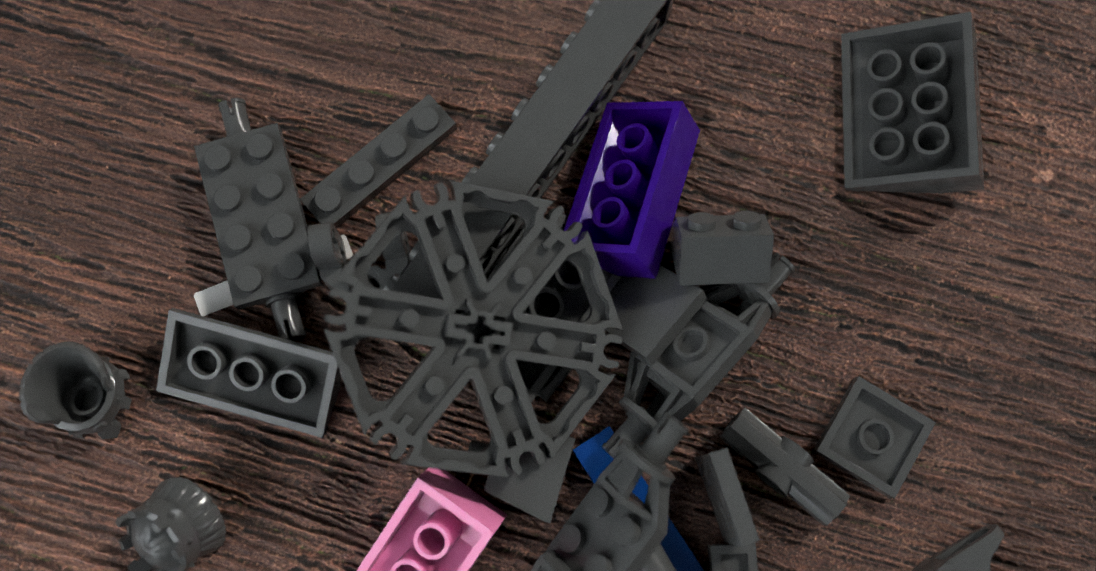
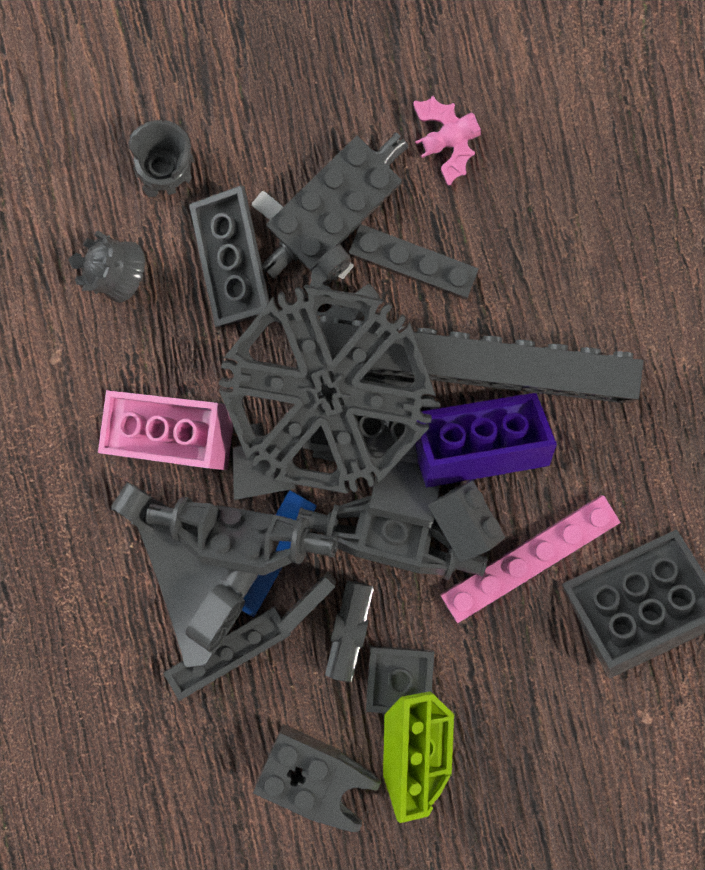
camera: 70 degrees right, 10 degrees up
(259, 43) = (453, 134): none -> bright pink animal
(798, 211) = (530, 558): none -> bright pink plate
(980, 462) = (417, 754): none -> lime wedge

